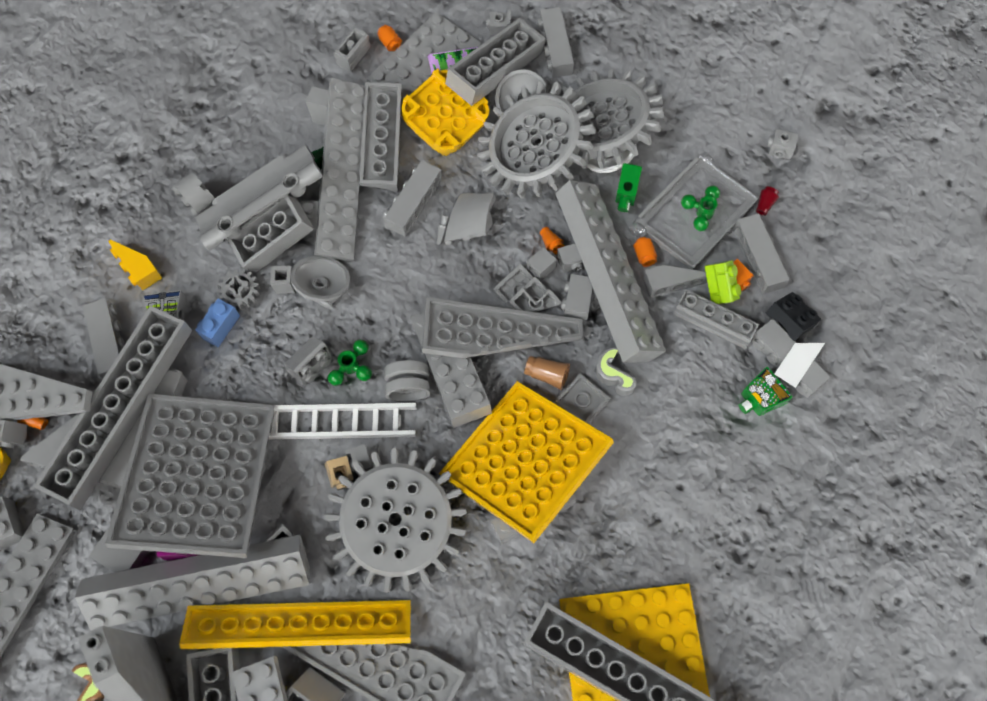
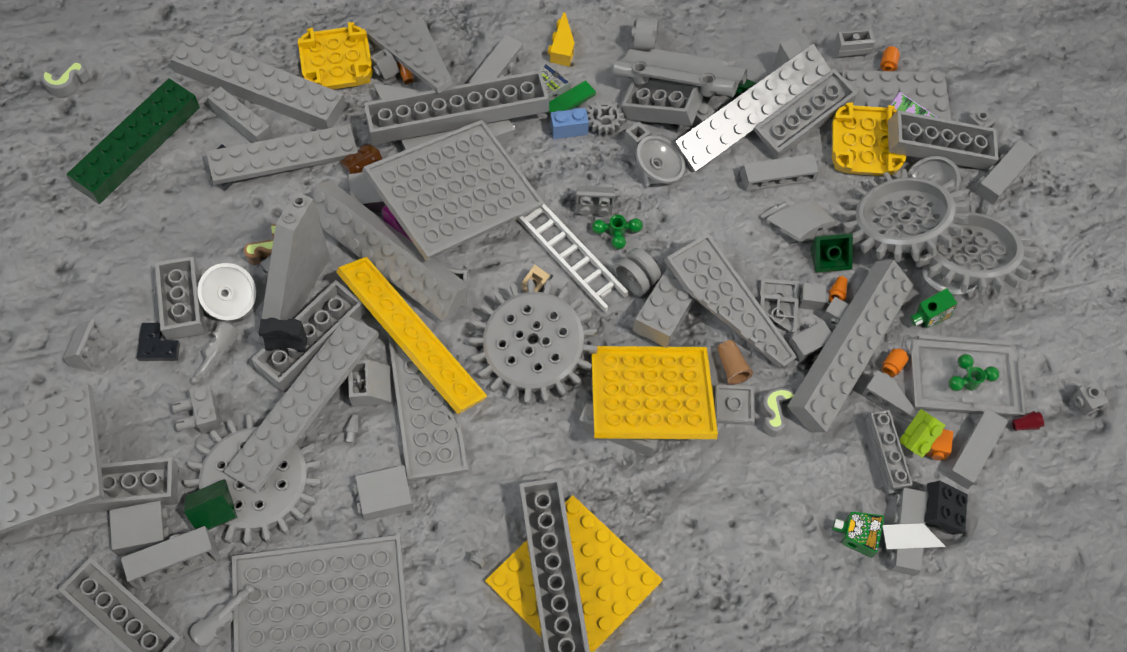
camera: 45 degrees right, 5 degrees down
(87, 530) = (365, 156): none -> reddish brown bracket
(195, 300) = (572, 98): none -> green tile
(517, 218) = (832, 252): none -> dark green slope

